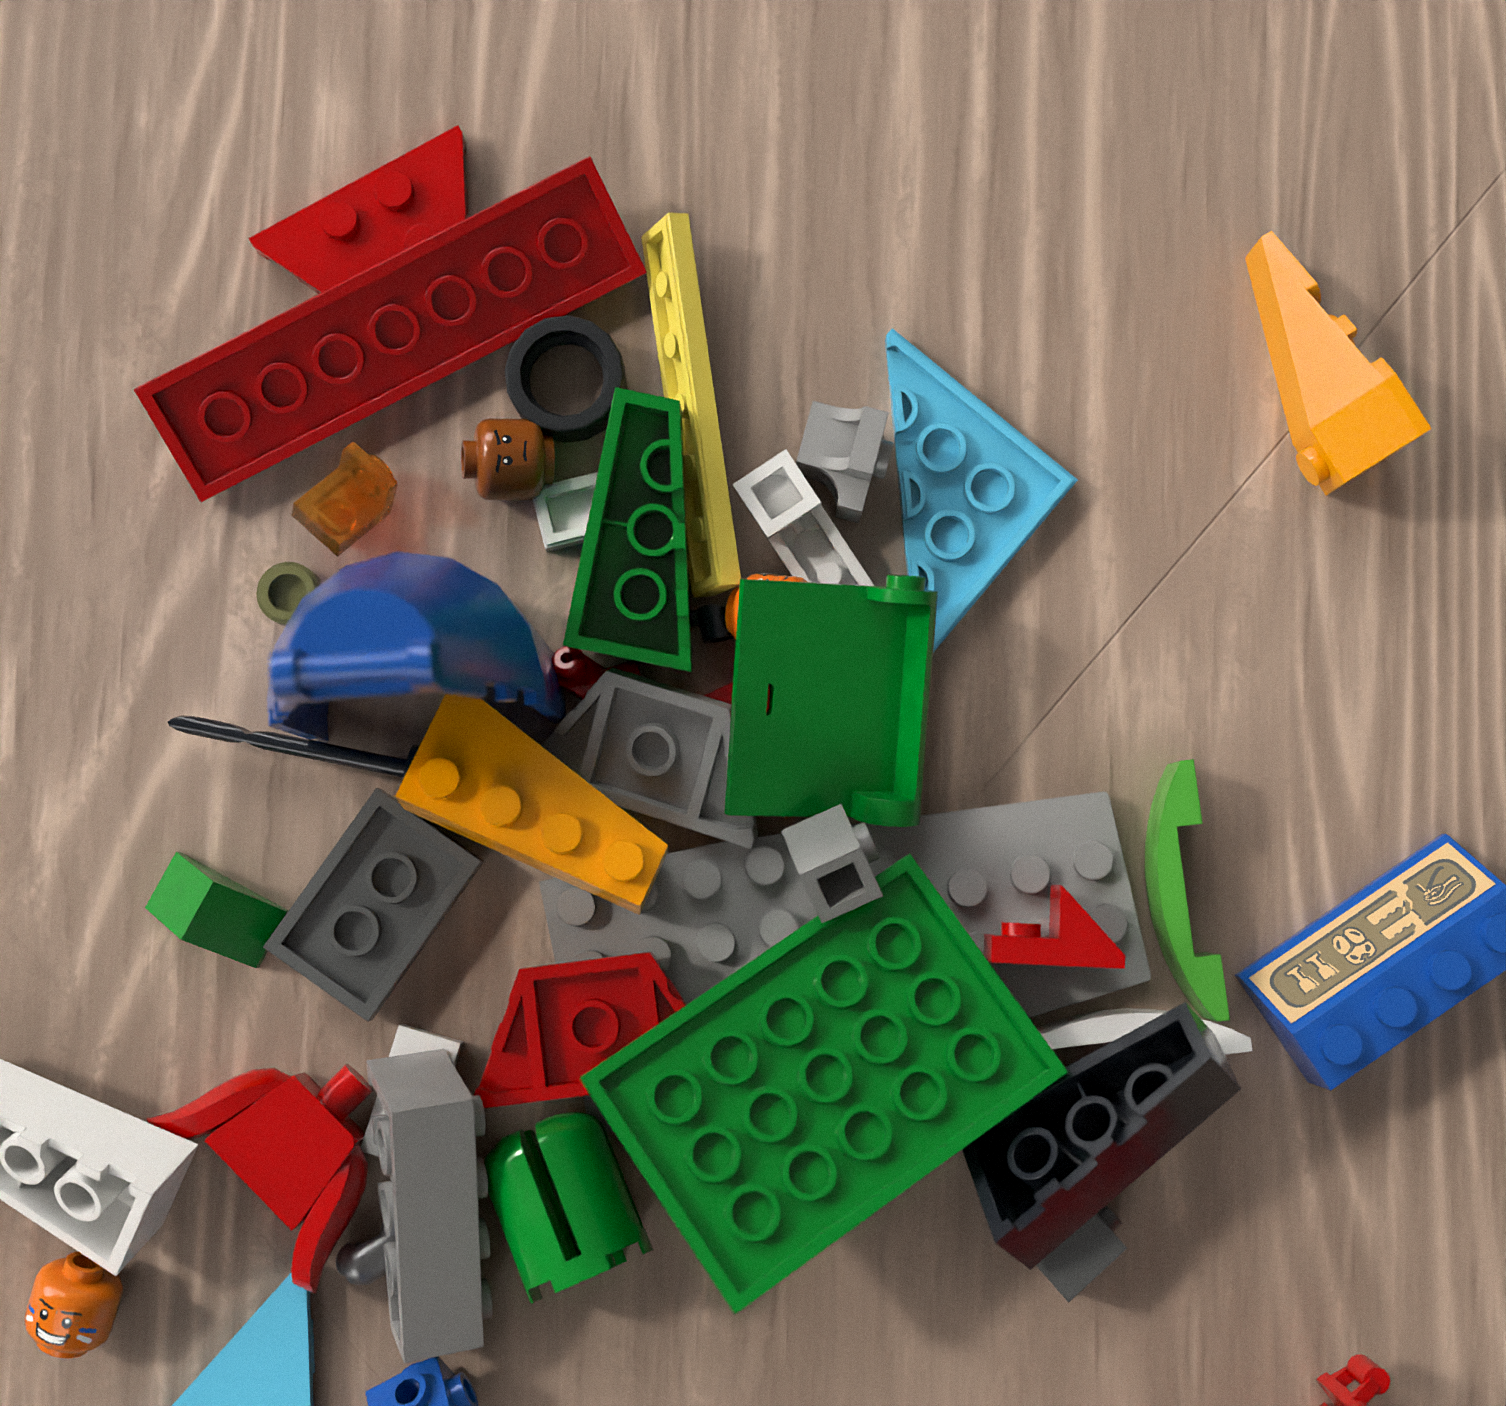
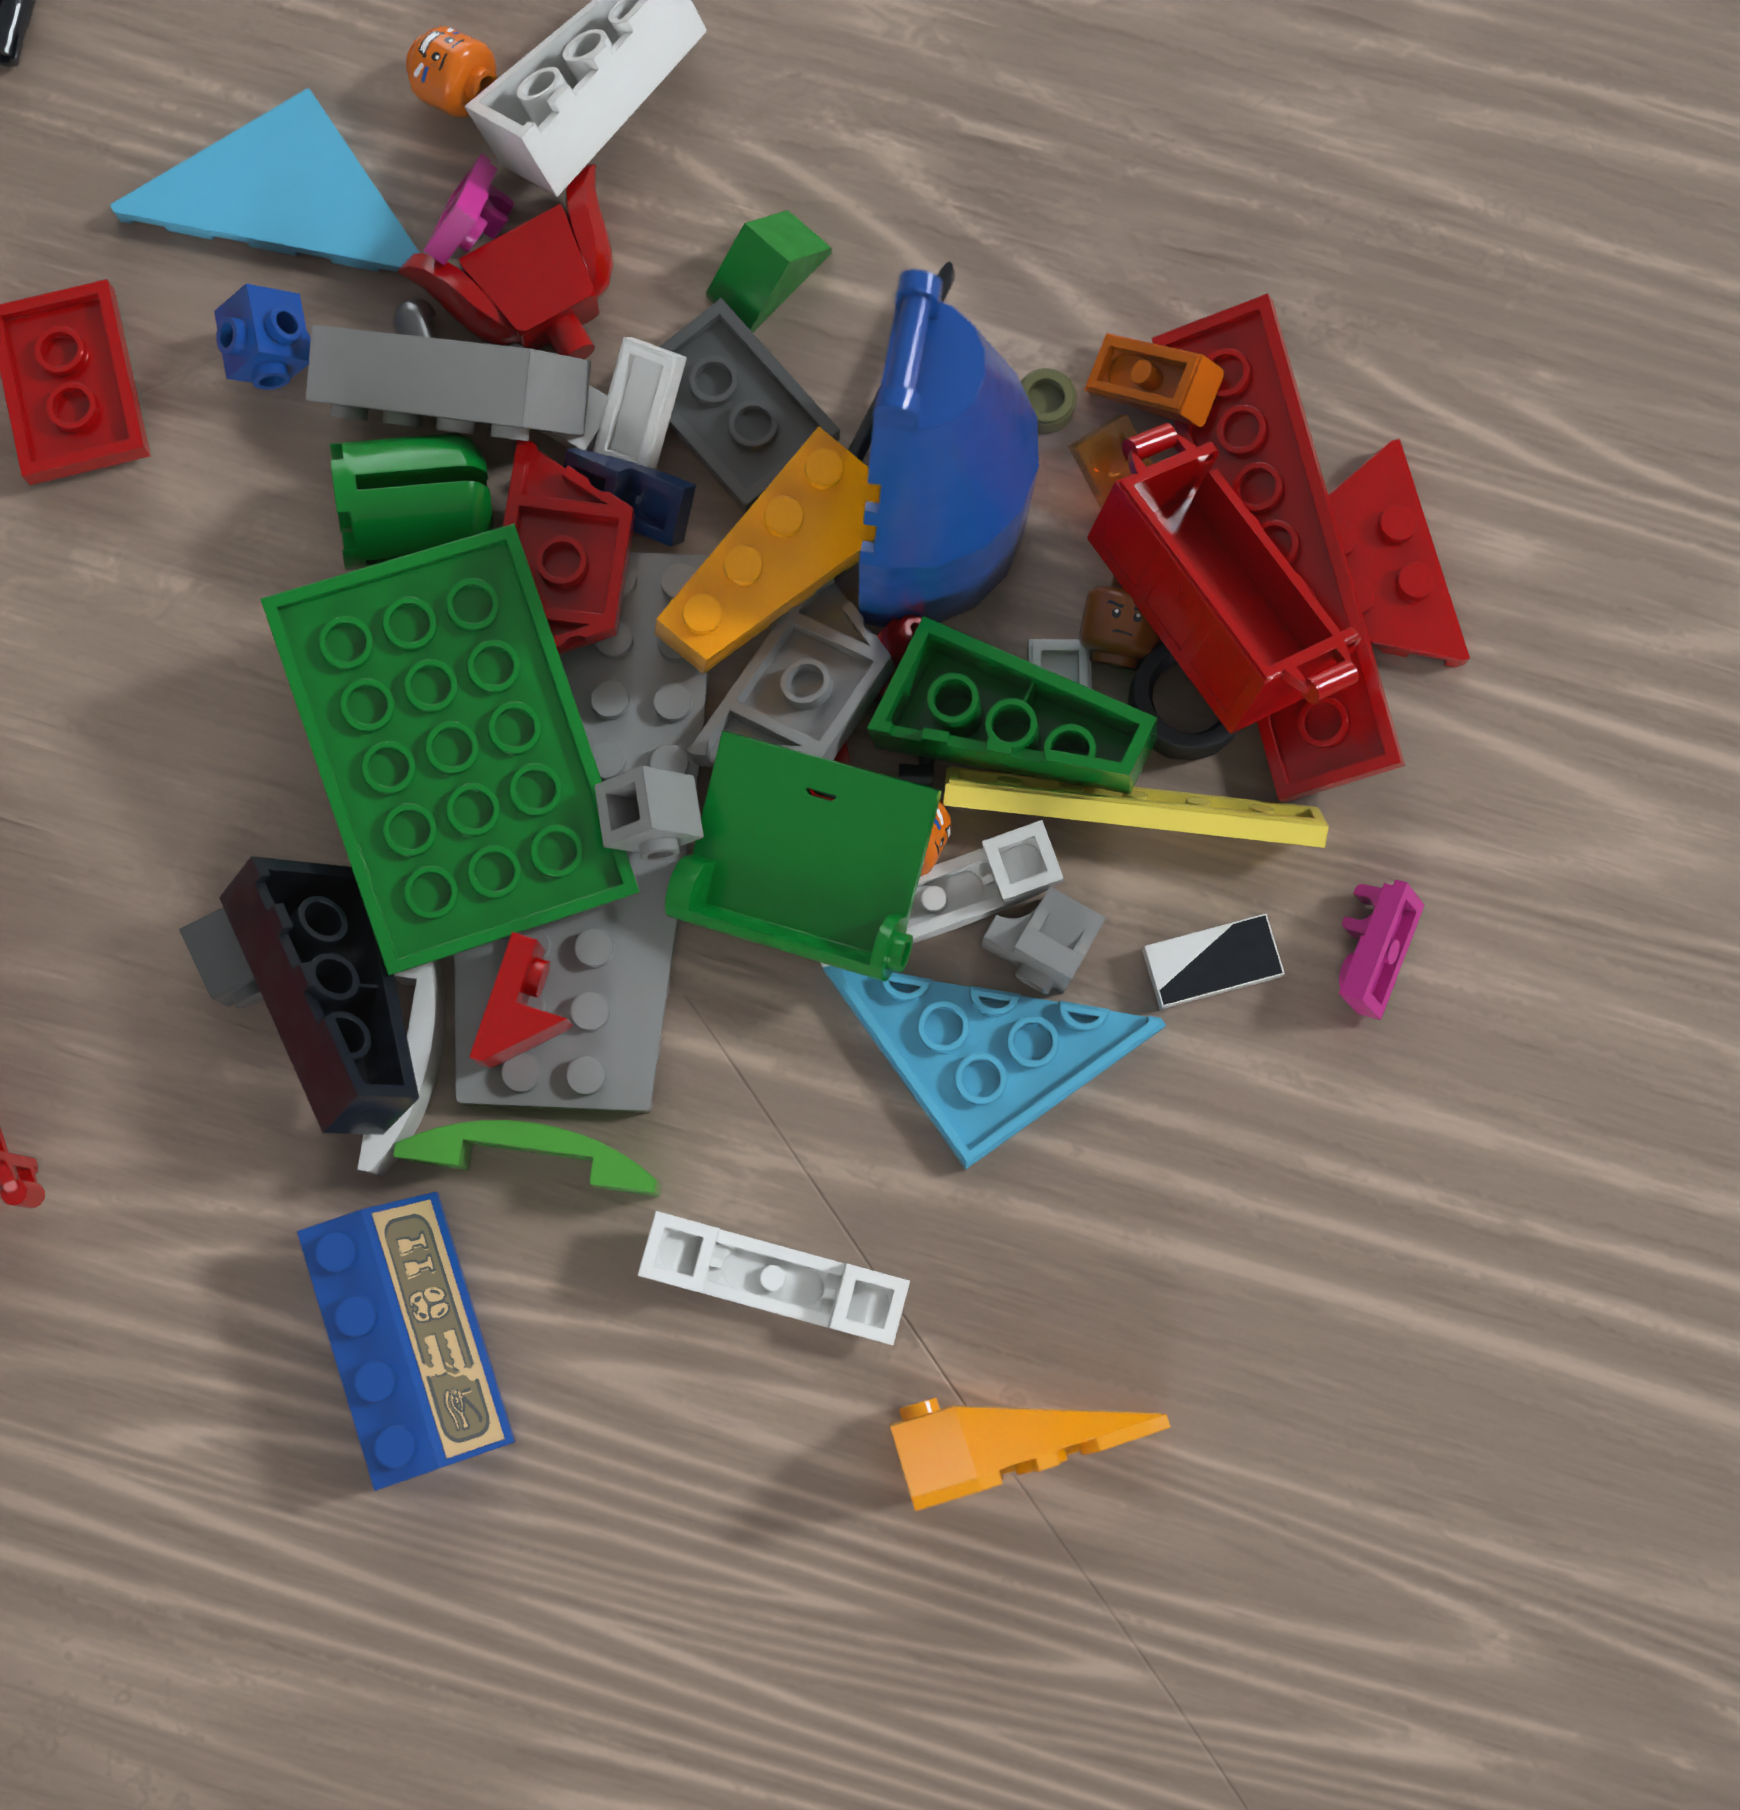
camera: 100 degrees right, 5 degrees down
(233, 1237) = (471, 209): none -> dark pink plate
(245, 488) = (1155, 379): none -> orange slope
(402, 997) = (639, 402): none -> white tile
(462, 361) = (1217, 585): none -> red container
(493, 957) = (658, 499): none -> dark blue slope
(792, 150) = (1384, 938): none -> dark pink plate
(817, 300) = (1213, 961): none -> black tile
(1229, 631) = (774, 1278): none -> white slope

